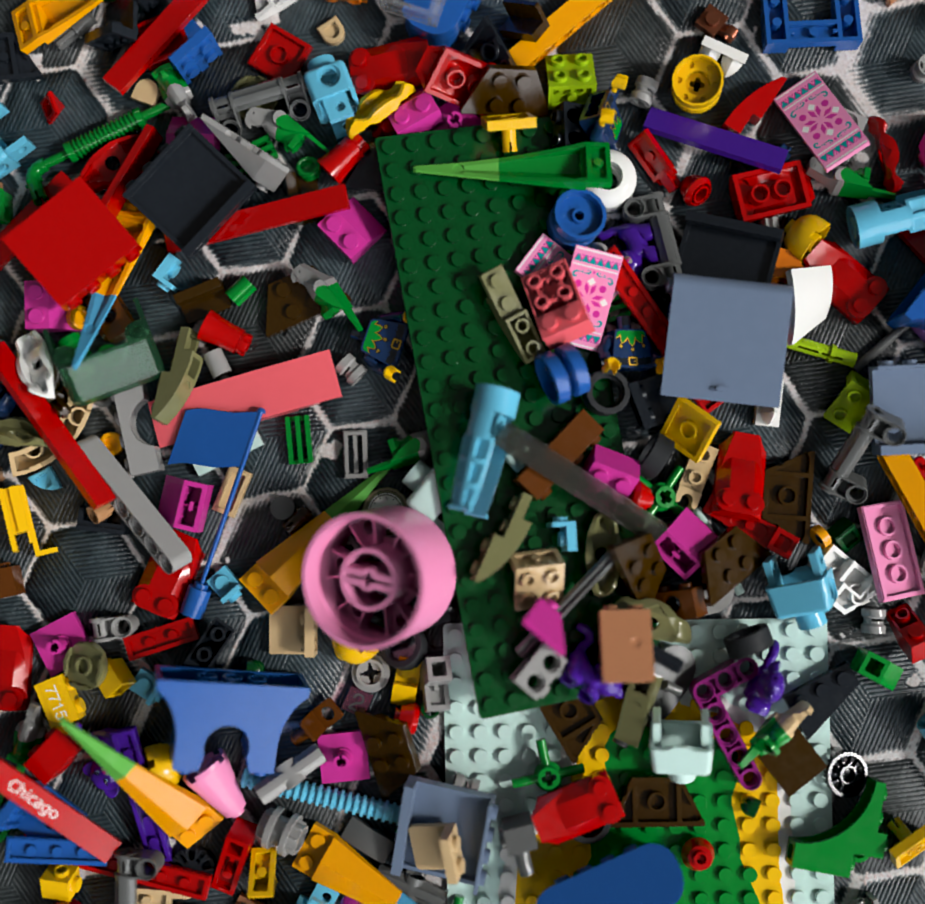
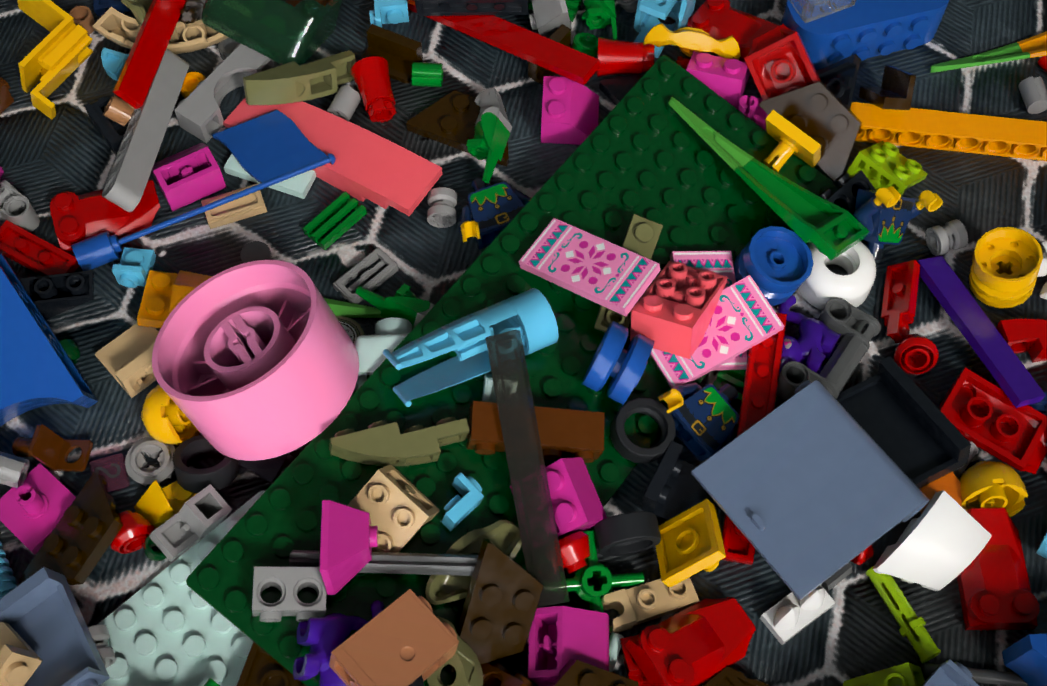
camera: 45 degrees right, 25 degrees down
(490, 334) = (590, 266): none -> bright pink tile

